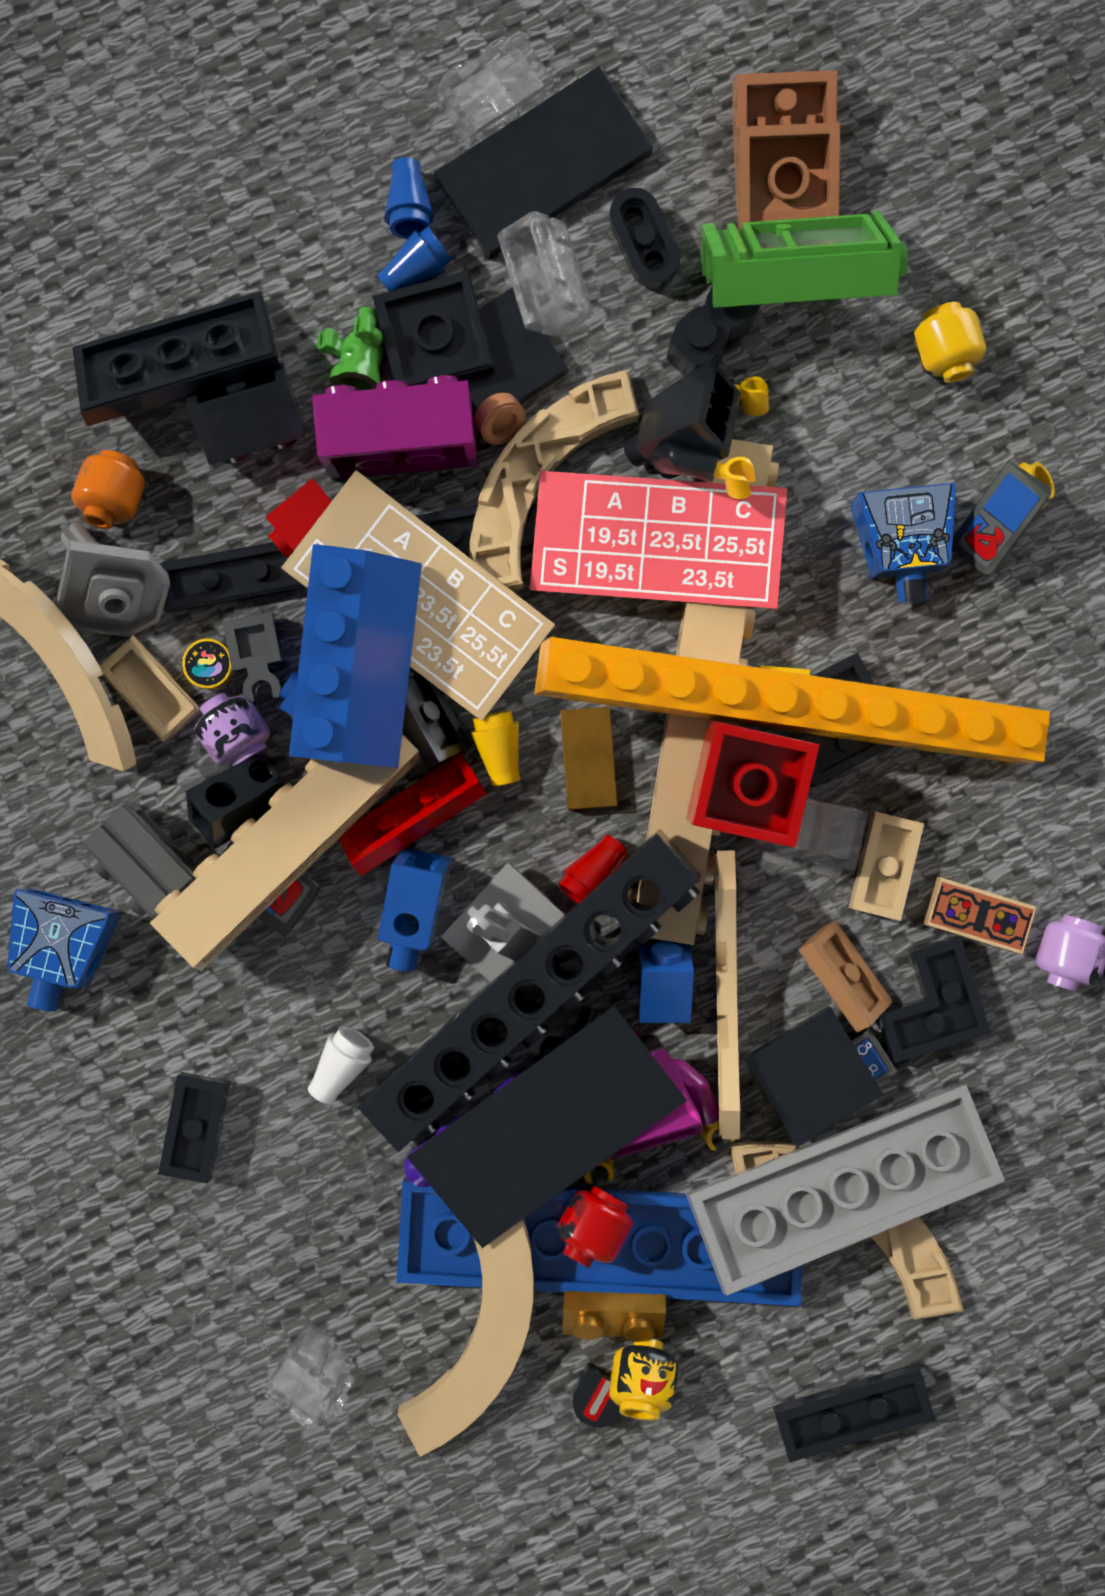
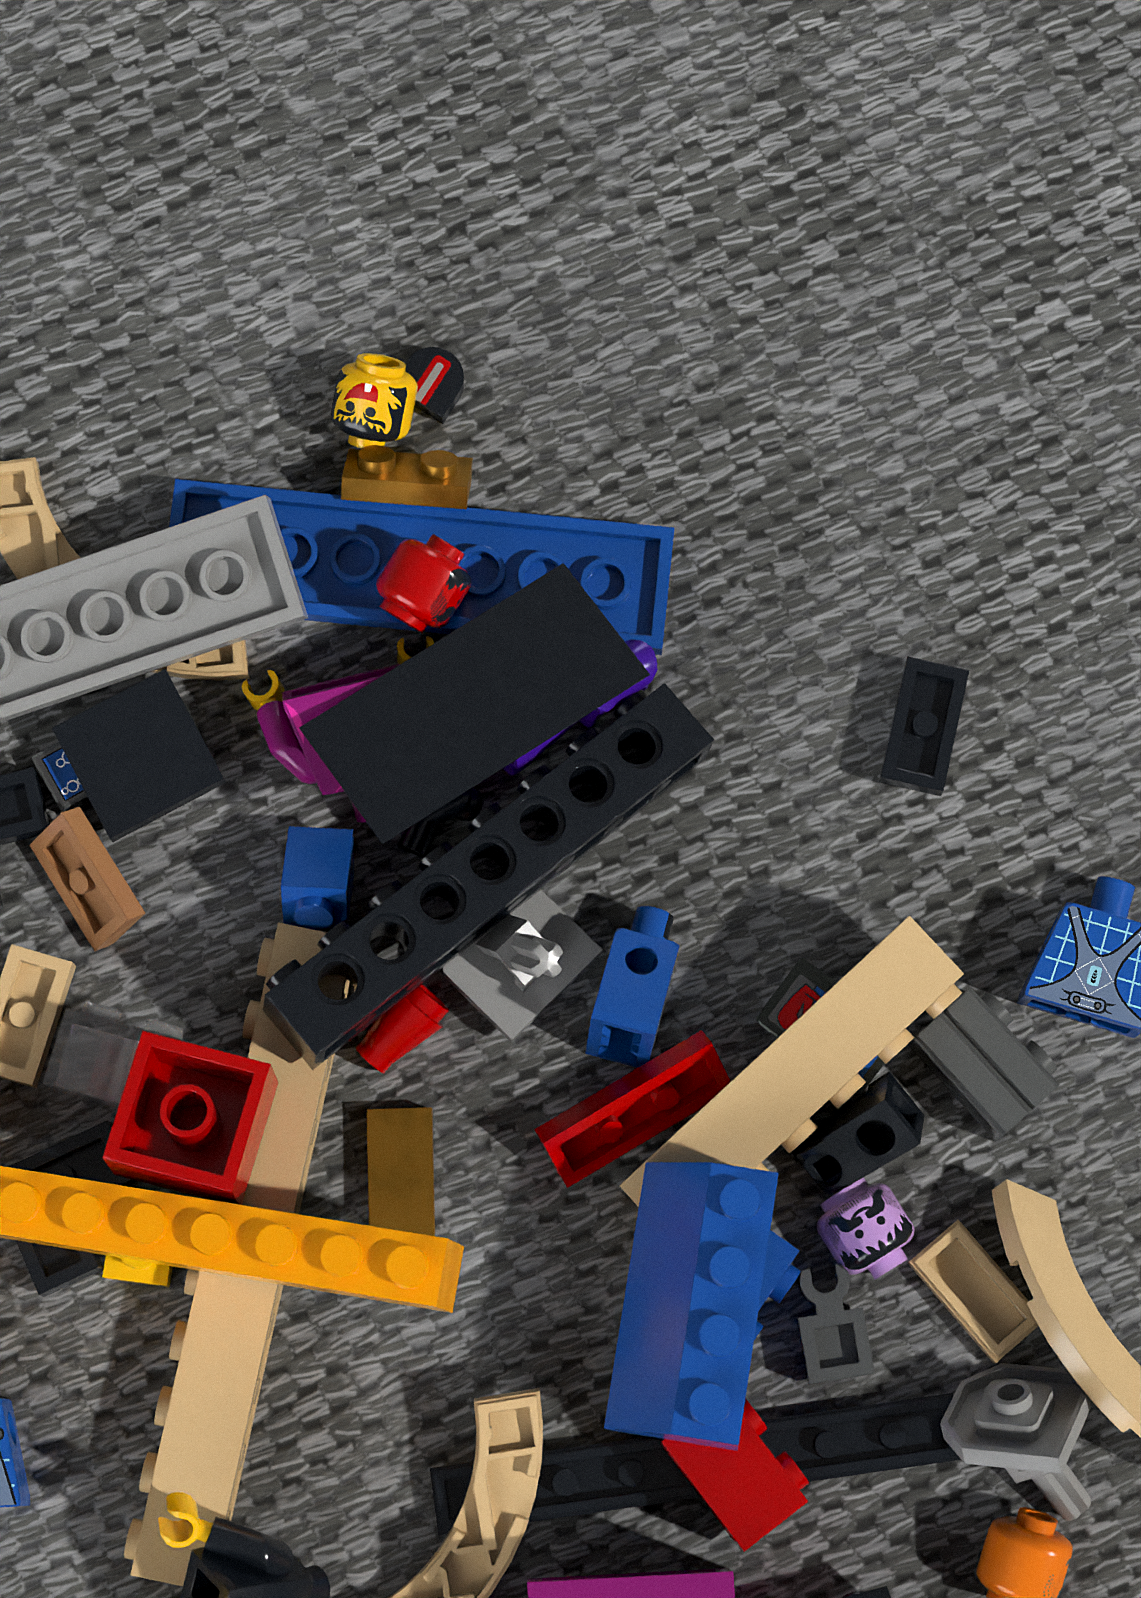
camera: 175 degrees left, 10 degrees down
(207, 664) = (897, 1321): tile -> none
(312, 1378) = (779, 420): clear brick -> none
(341, 1062) = (735, 798): white cone -> none
(432, 722) = (602, 1230): black plate -> none
(468, 624) = (547, 1350): tan sticker -> none
(491, 1350) = (561, 442): tan tile -> none
(498, 746) = (517, 1194): yellow cone -> none
(658, 540) = (293, 1453): coral sticker -> none
(727, 995) = (240, 861): tan tile -> none
(853, 1412) = (119, 351): black plate -> none

